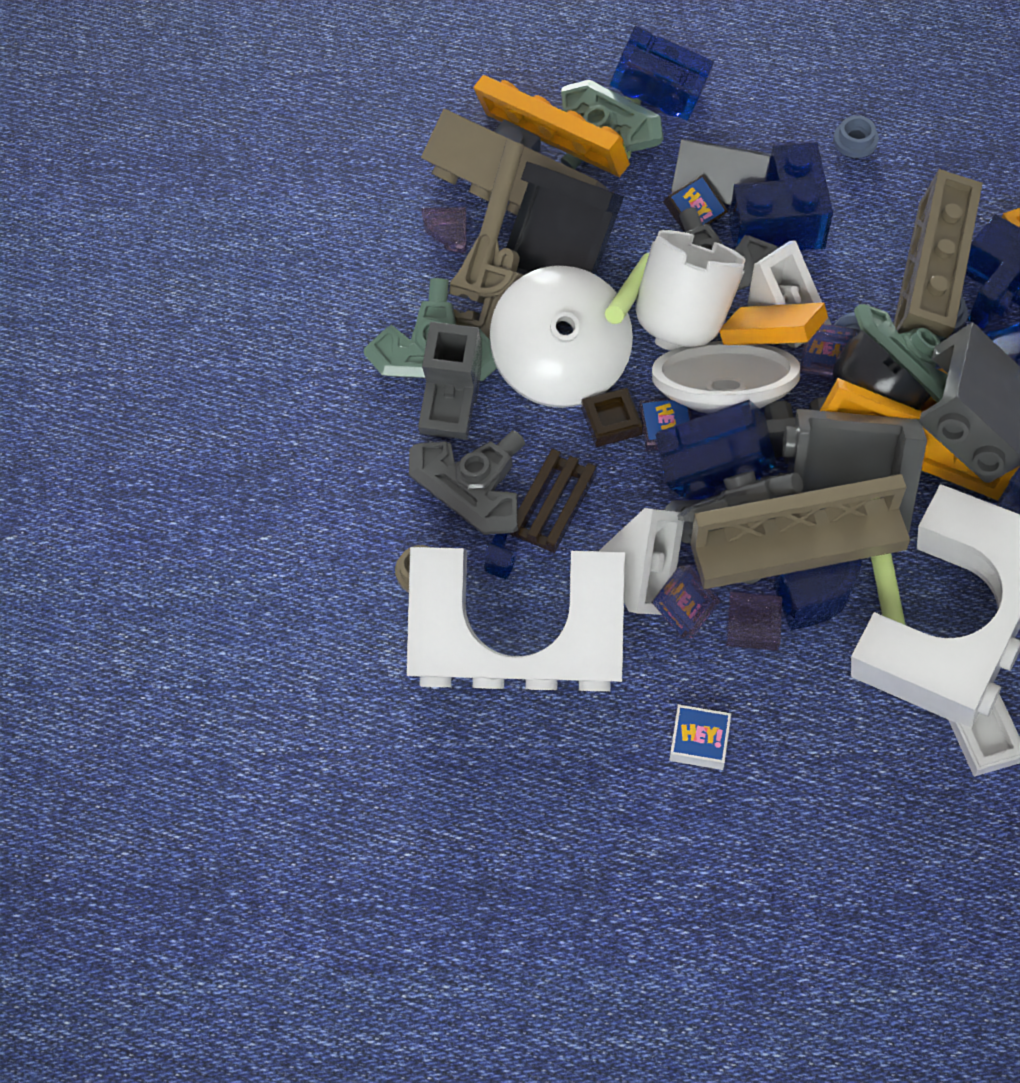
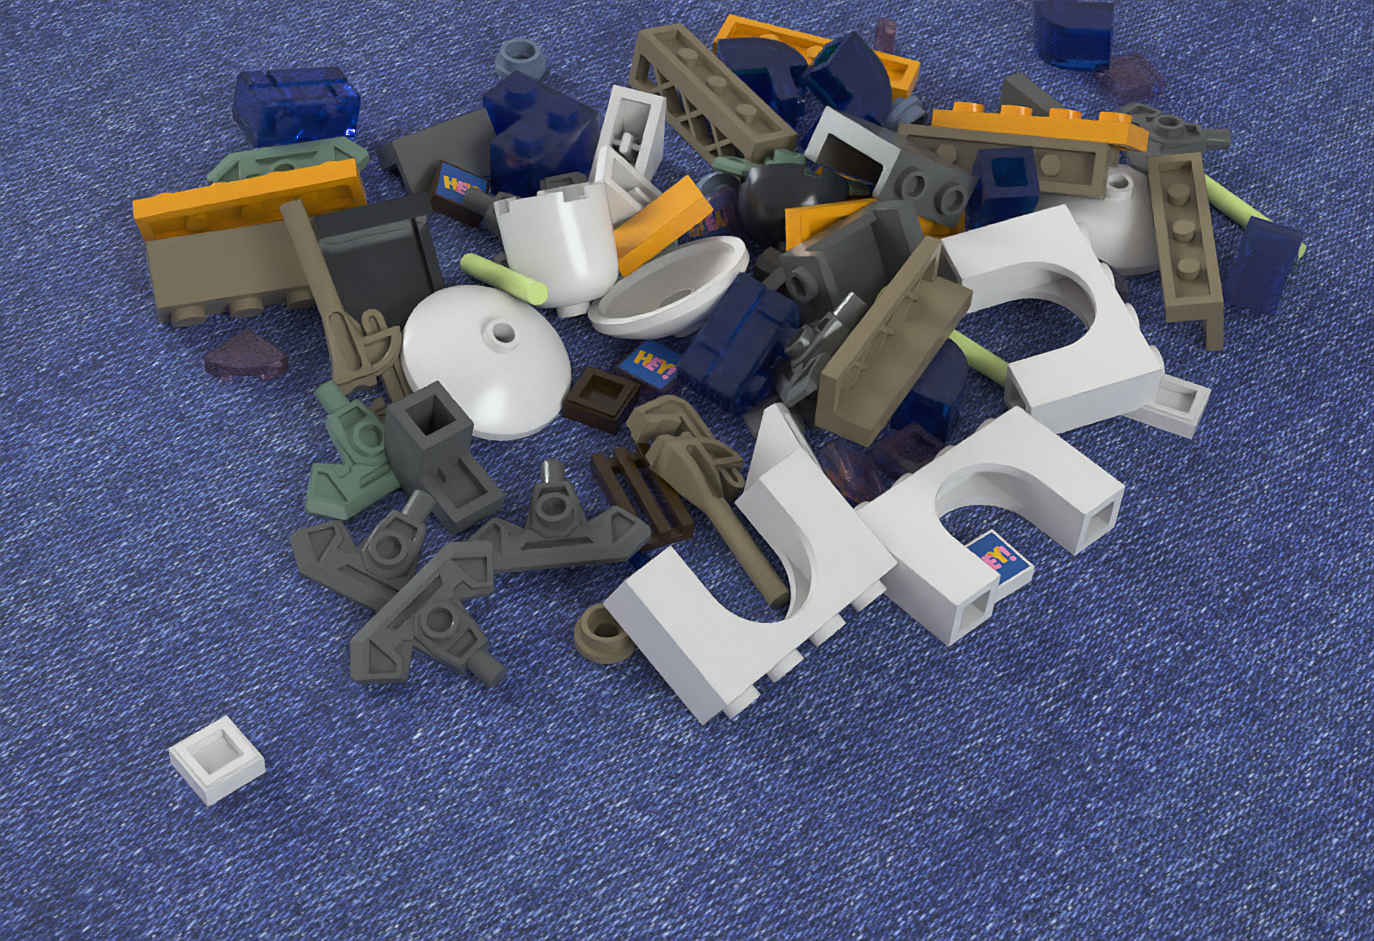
camera: 55 degrees left, 15 degrees down
(152, 462) = (217, 760): none -> white tile
(335, 477) = (432, 620): none -> dark grey piece
(352, 421) = (377, 566): none -> dark grey piece
(594, 514) = (707, 477): none -> dark tan piece
(796, 676) = (1005, 465): none -> white arch
(844, 250) = (634, 130): none -> white slope

